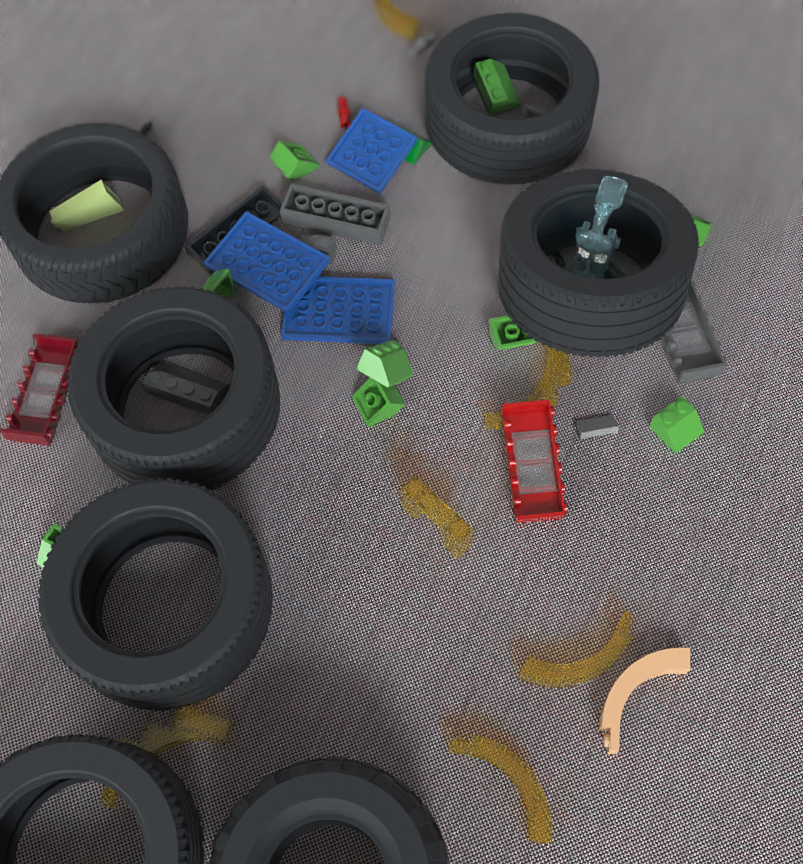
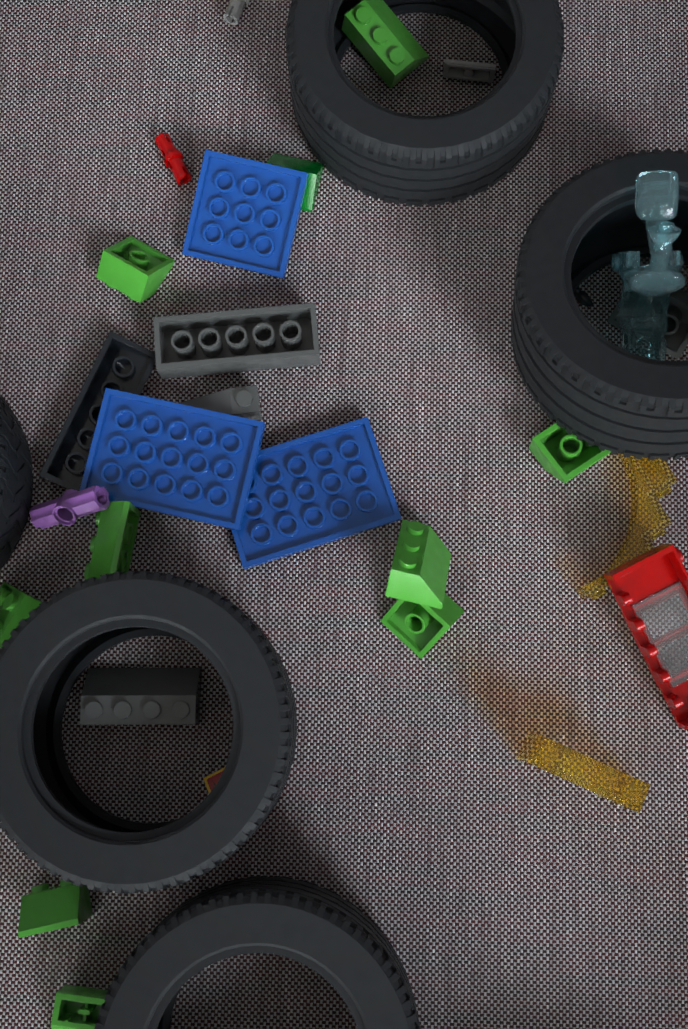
camera: 20 degrees left, 15 degrees up
(77, 481) = (53, 908): none -> bright green slope
(194, 267) = (69, 507): none -> medium lavender piece

